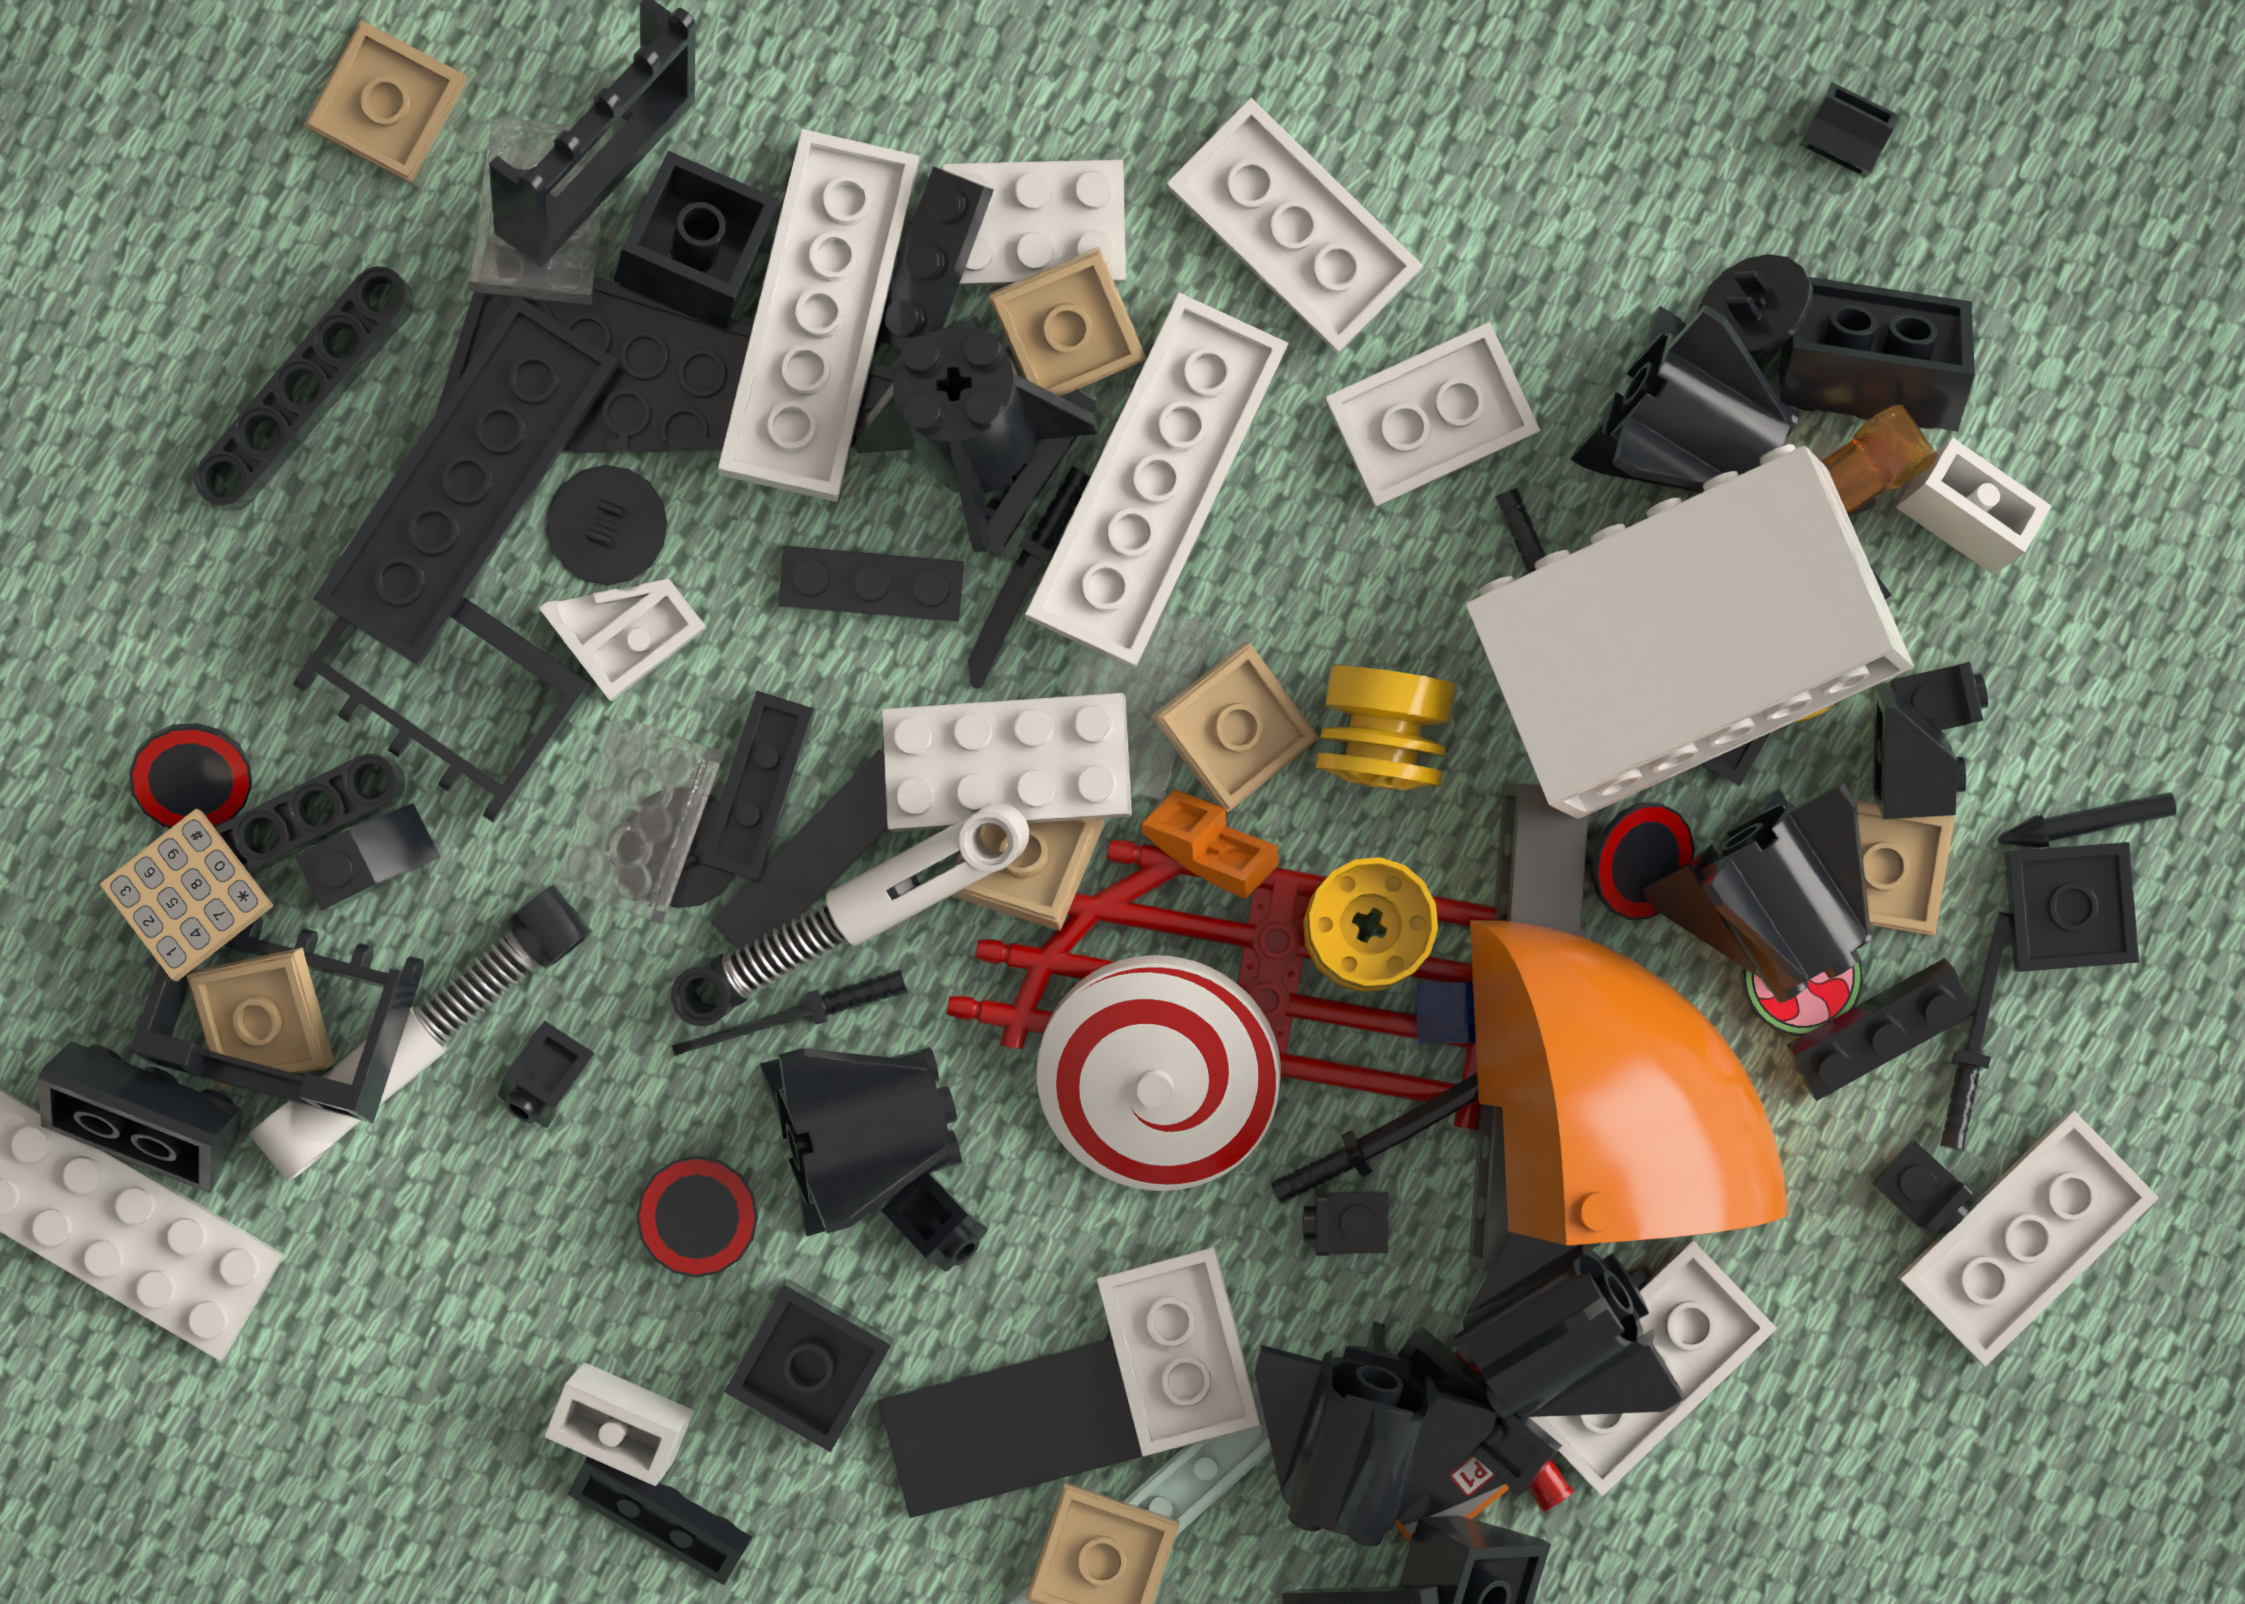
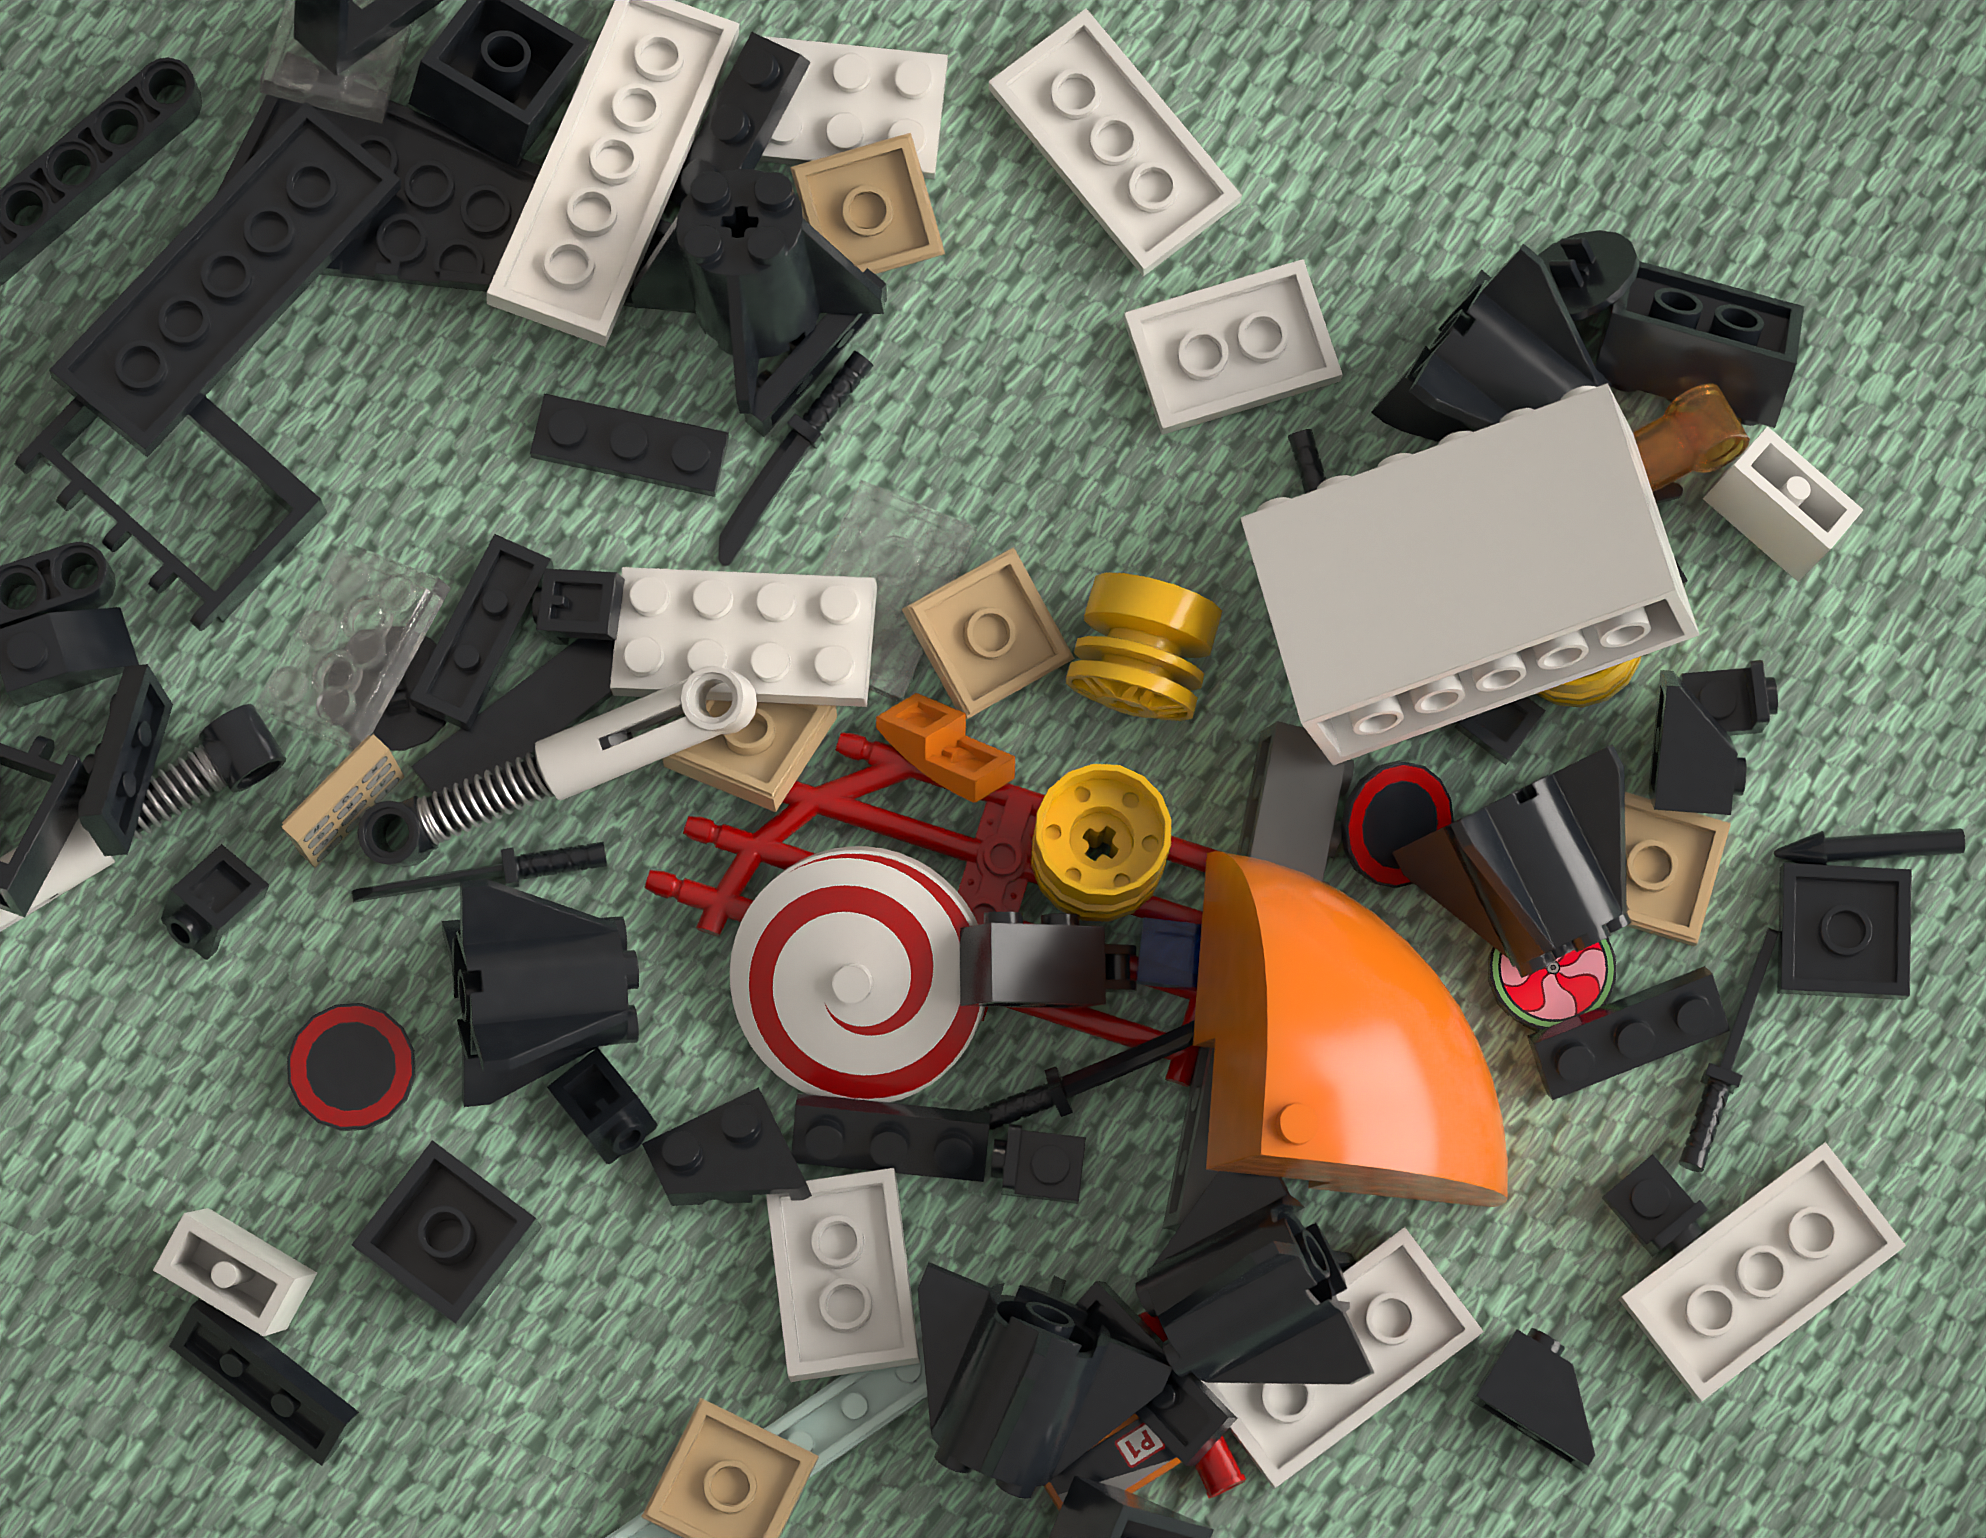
camera: 10 degrees right, 10 degrees down
(443, 960) = (125, 760): none -> black plate
(607, 525) = (365, 353): black piece -> none
(624, 631) = (368, 459): white wing -> none
(652, 971) = (342, 800): none -> tan tile
(846, 752) = (578, 605): none -> black bracket
(1010, 1427) = (652, 1337): black tile -> none
(1057, 1253) = (726, 1156): none -> black wing
(1156, 481) = (937, 374): white plate -> none
(1206, 1216) = (890, 1136): none -> black plate
(1328, 1047) = (1040, 963): none -> black brick
(1833, 1379) = (1538, 1396): none -> black slope
(1849, 130) = (1695, 119): black piece -> none

